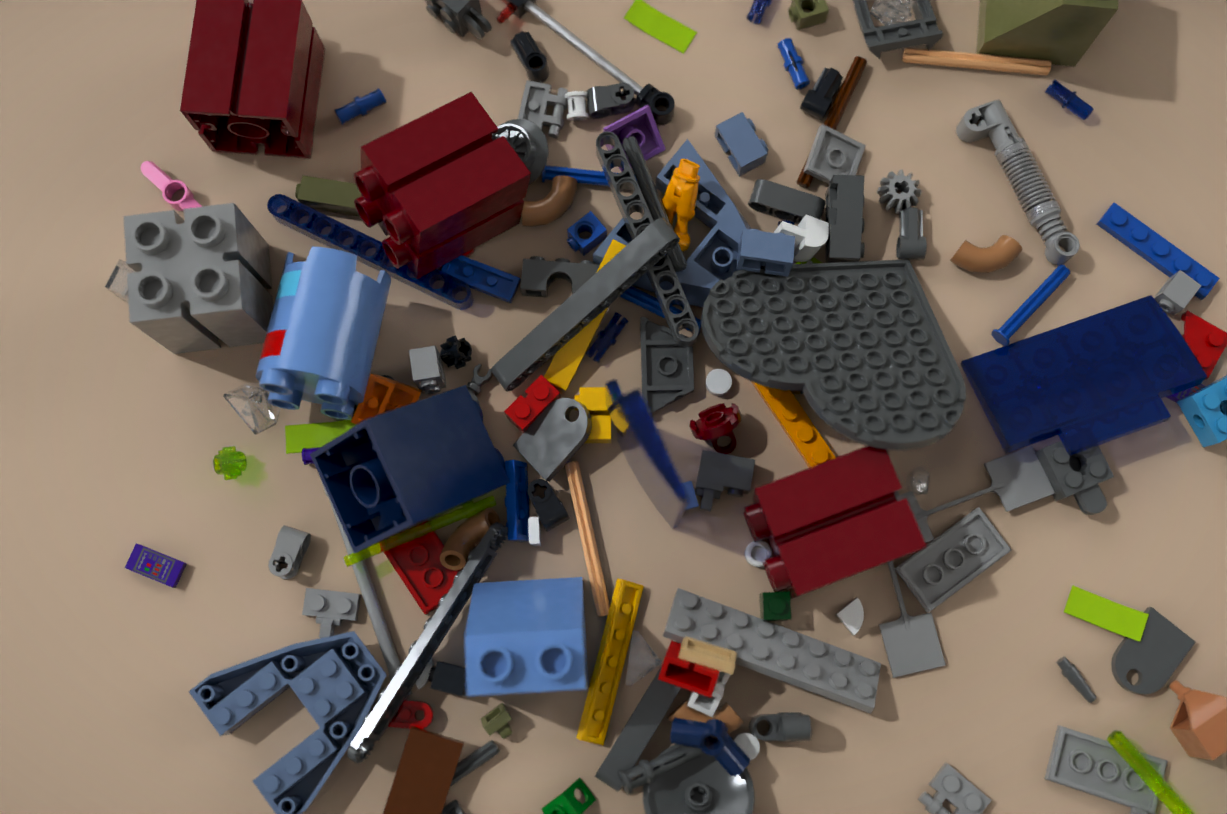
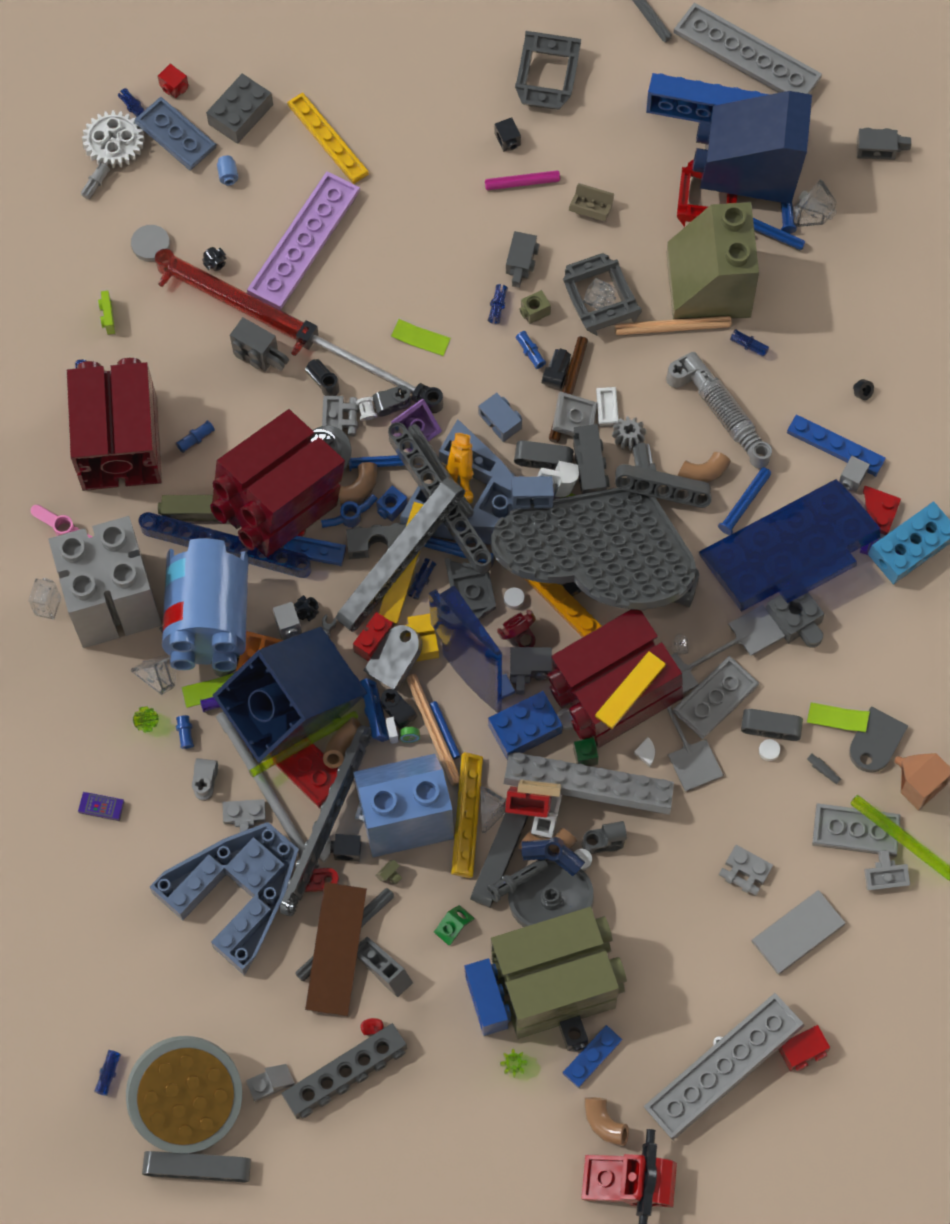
camera: 10 degrees left, 10 degrees down
(276, 487) = (184, 728): none -> blue pin
(530, 229) = (350, 506): none -> blue piece
(556, 541) = (409, 734): none -> bright green tile
(602, 541) = (445, 730): none -> blue bar
(704, 555) = (525, 725): none -> blue brick
(853, 558) = (630, 690): none -> yellow tile
(876, 152) = (607, 406): none -> white tile
(932, 269) = (669, 492): none -> dark grey beam
(1010, 641) = (769, 750): none -> white tile
(1020, 609) = (772, 724): none -> dark grey beam
(1204, 184) = (863, 389): none -> black tile

